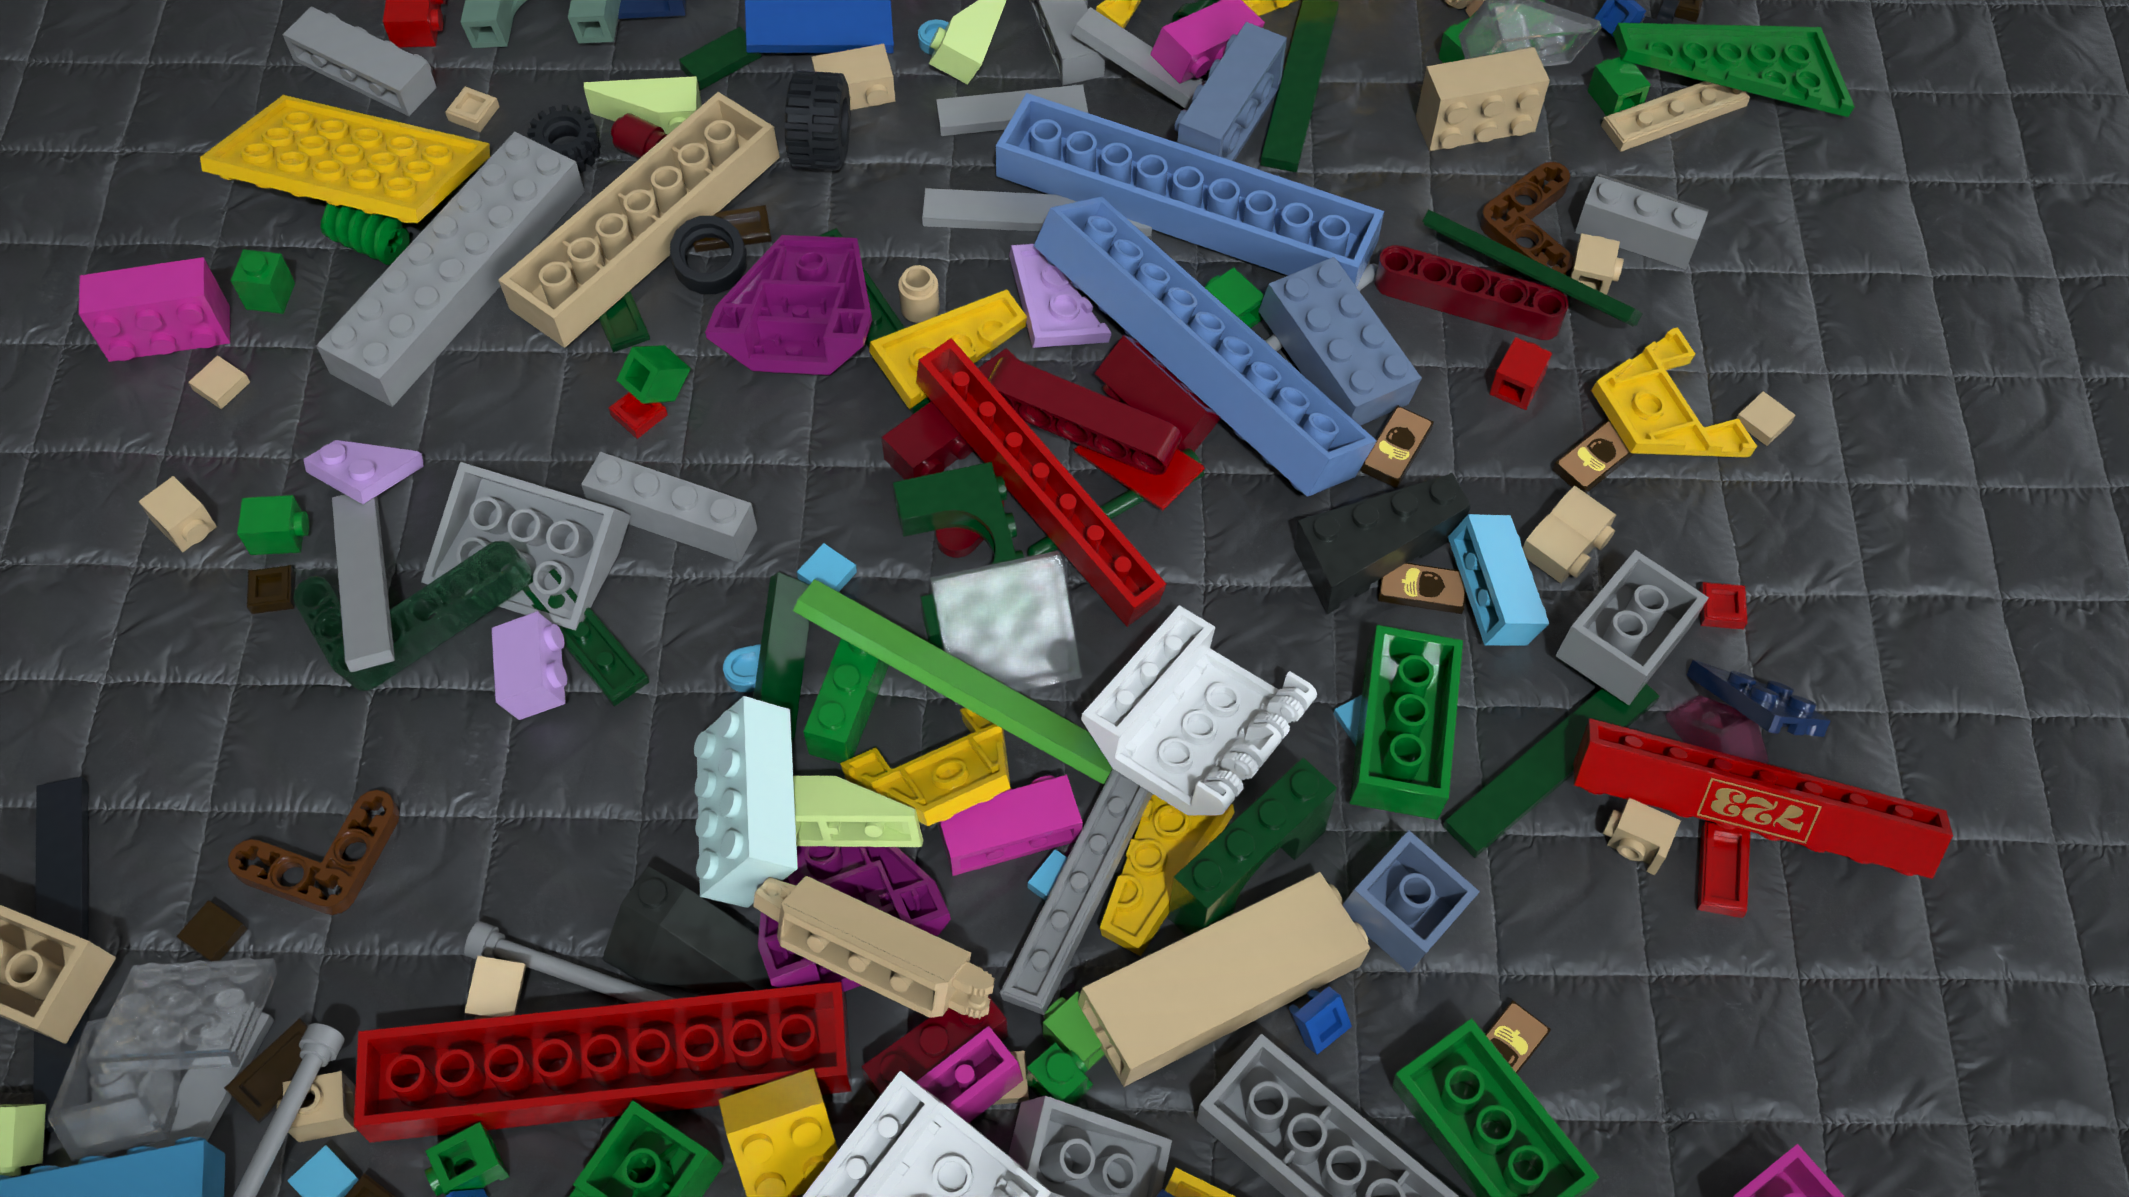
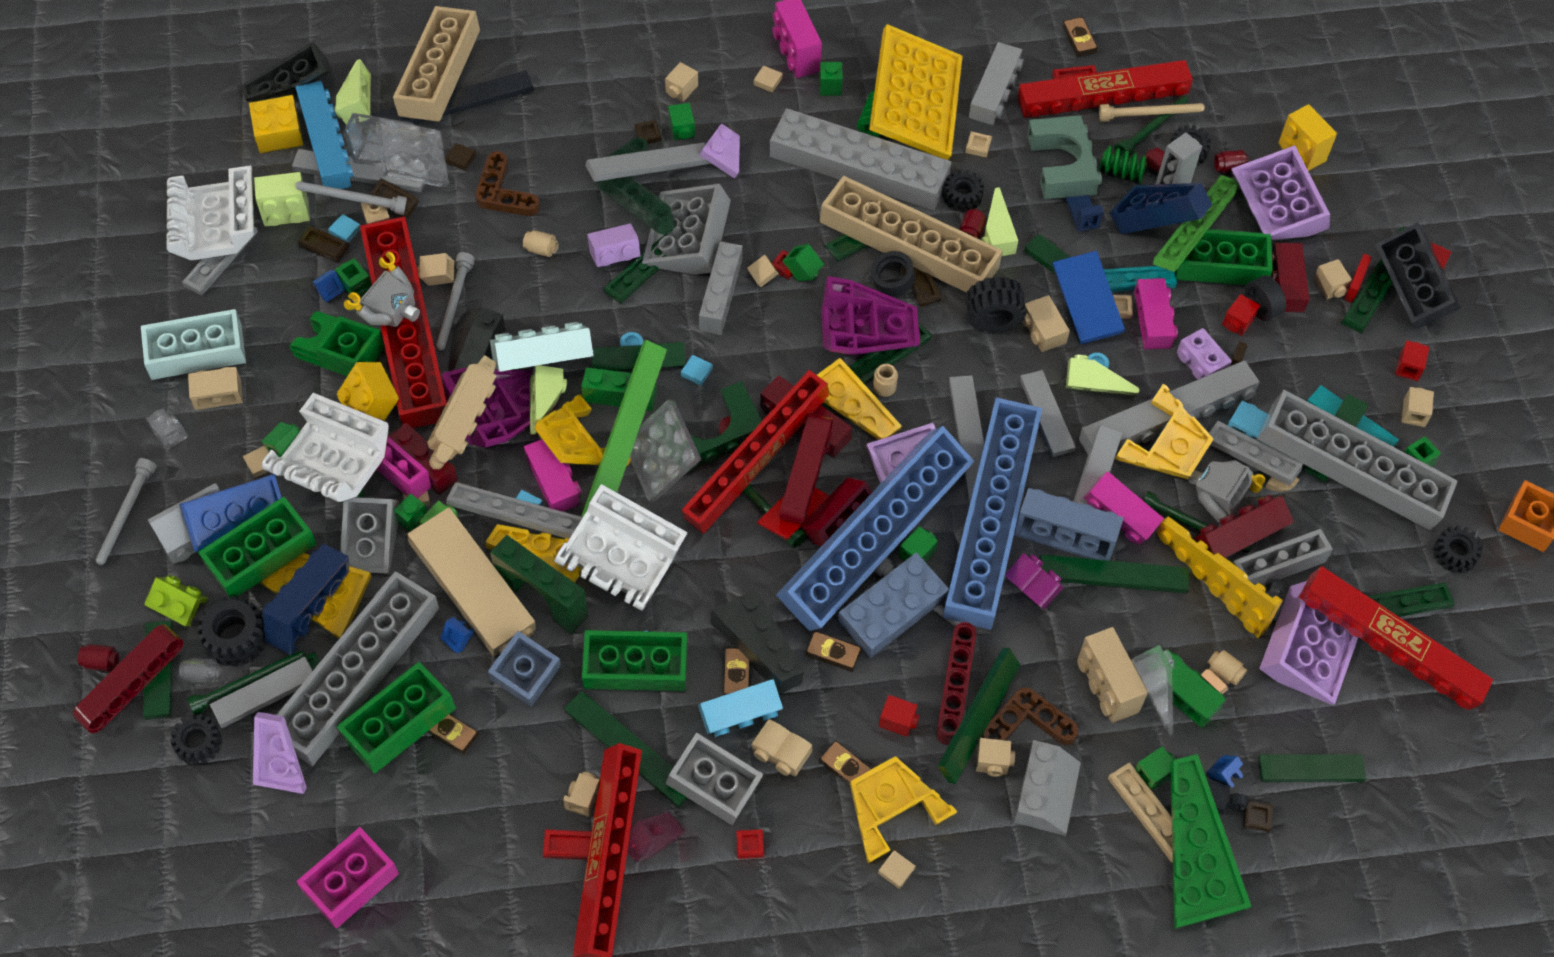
camera: 80 degrees right, 0 degrees up
(480, 797) = (540, 243): none -> tan brick
(572, 1065) = (387, 299): none -> light grey torso
(646, 442) = (762, 270): none -> tan tile
(1317, 162) = (1034, 581): none -> magenta brick
(1764, 704) = (669, 852): dark blue wing -> none

